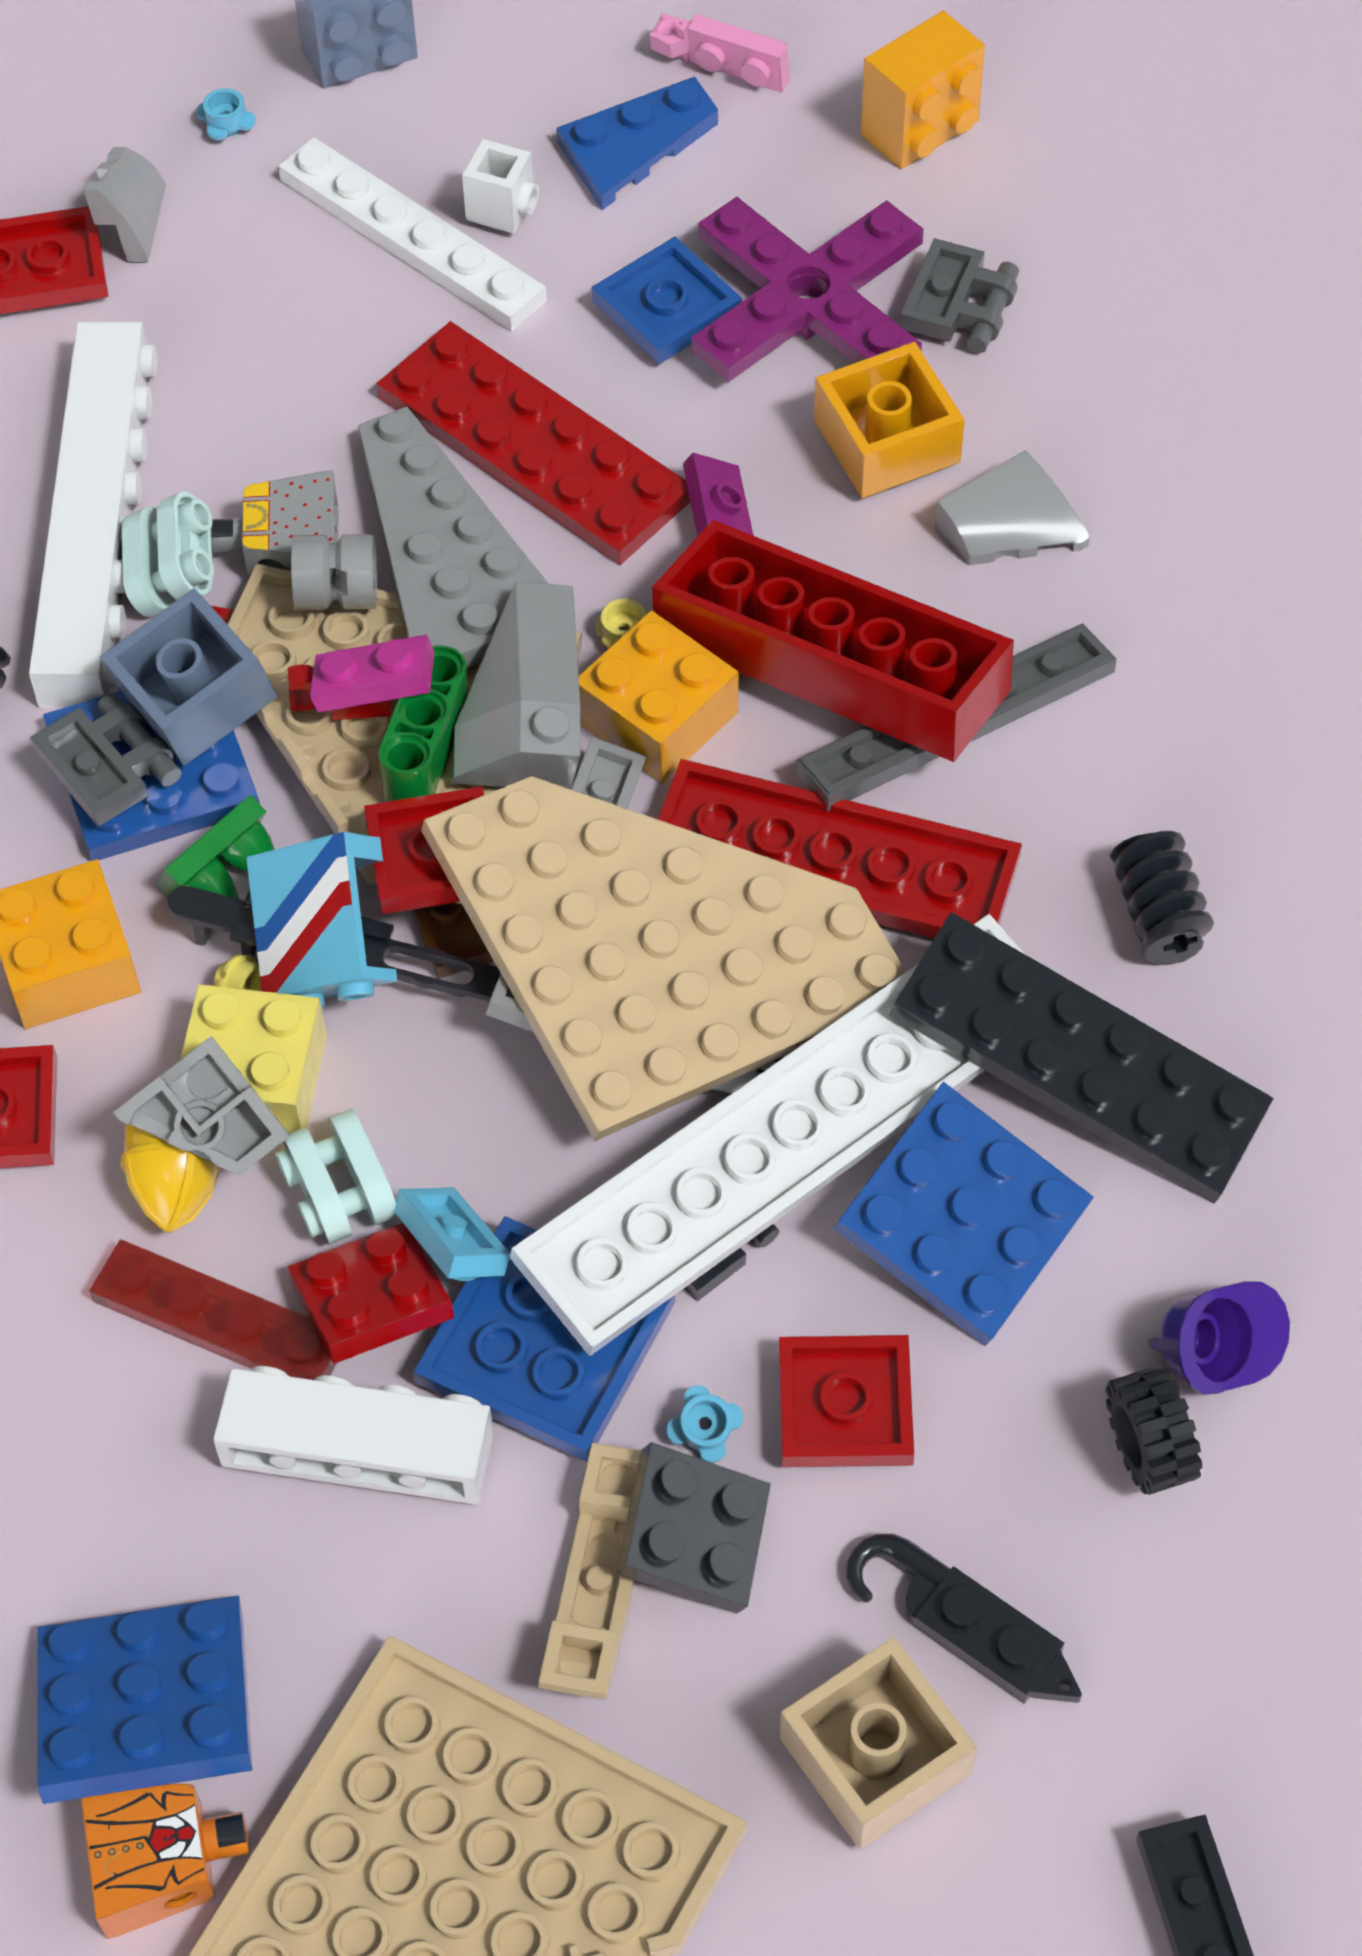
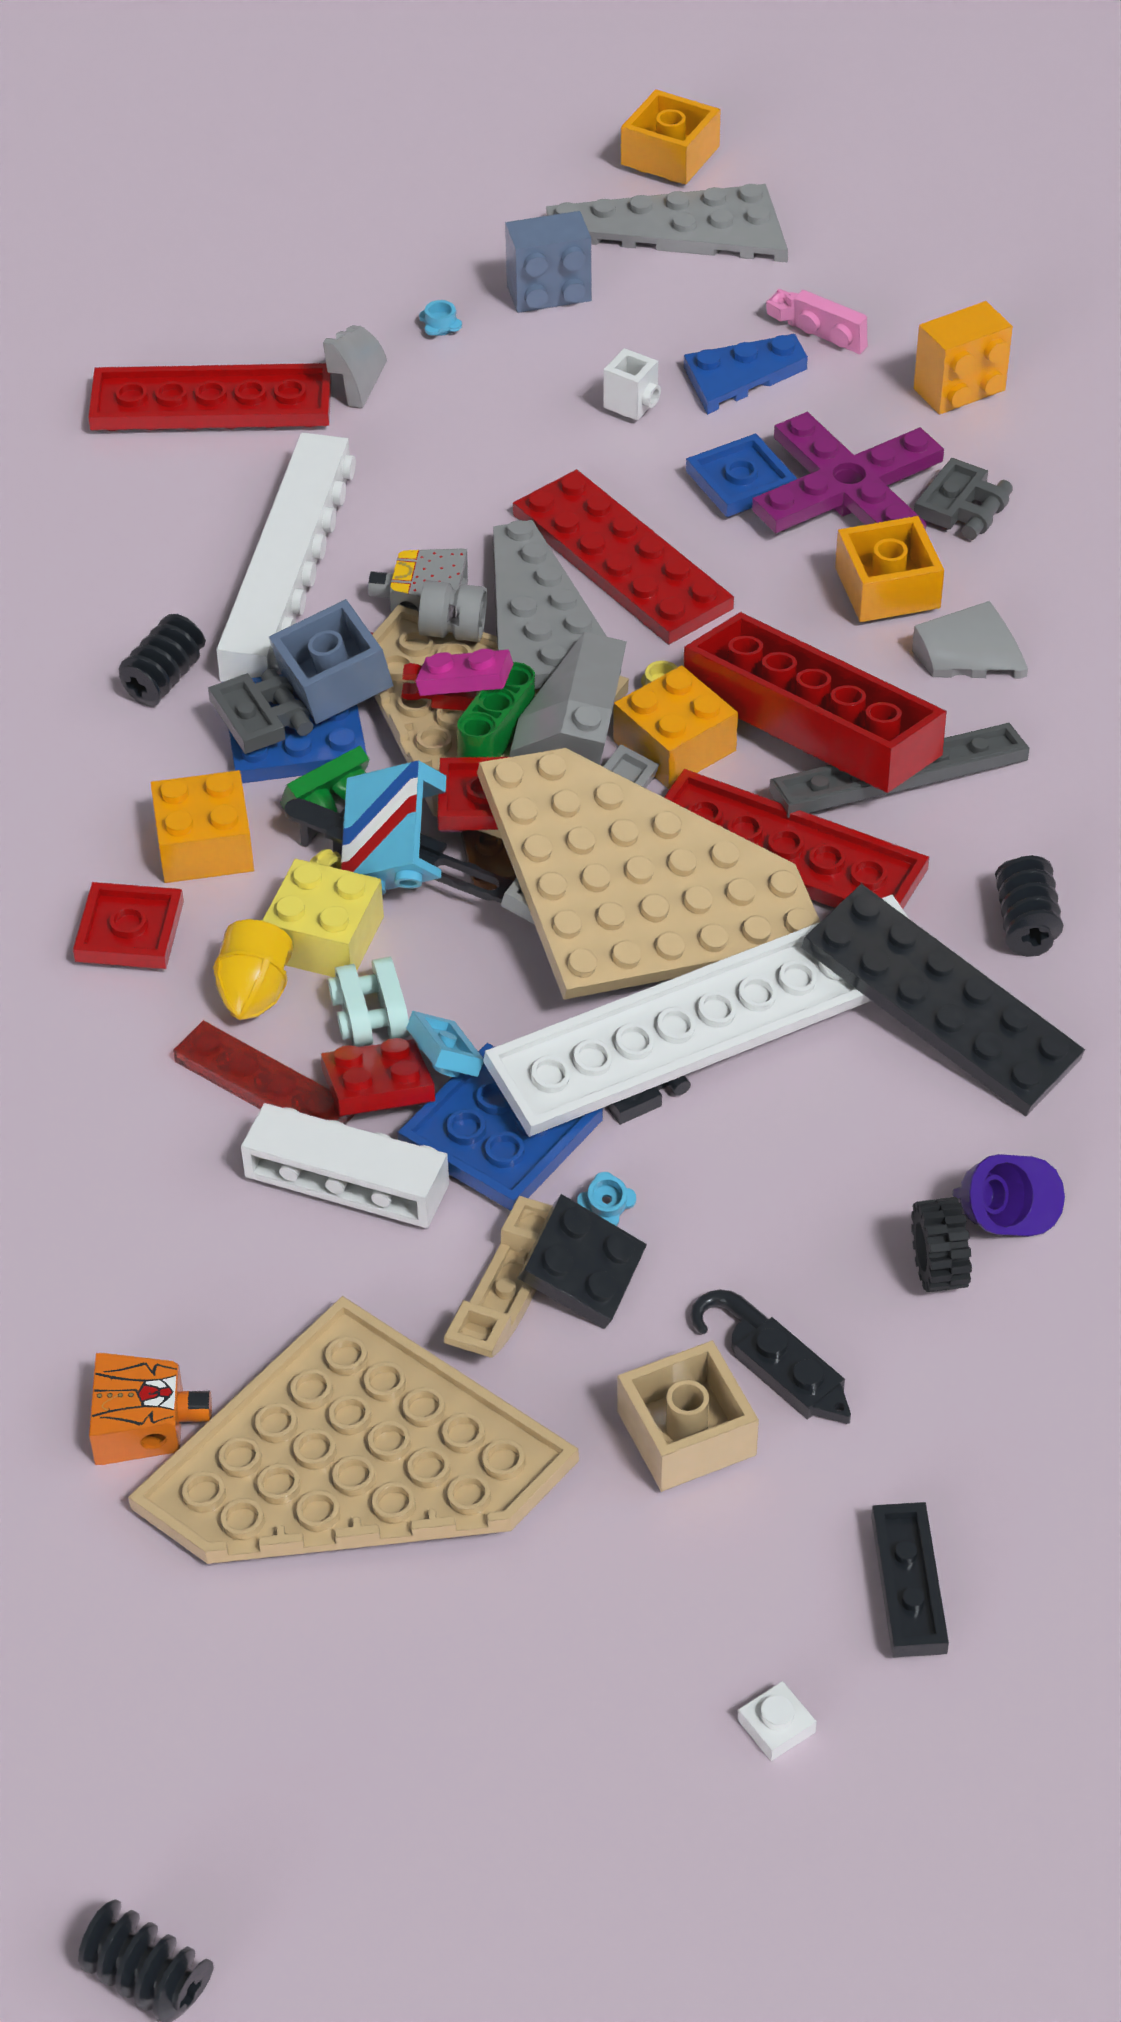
camera: 10 degrees right, 10 degrees down
(142, 1700) = (154, 1307): blue plate -> none
(167, 552) = (334, 579): light aqua brick -> none
(207, 1110) = (282, 933): light grey slope -> none
(413, 234) = (562, 412): white plate -> none
(716, 493) = (750, 598): magenta plate -> none
(846, 1401) = (715, 1199): red plate -> none
(963, 1213) = (830, 1088): blue plate -> none

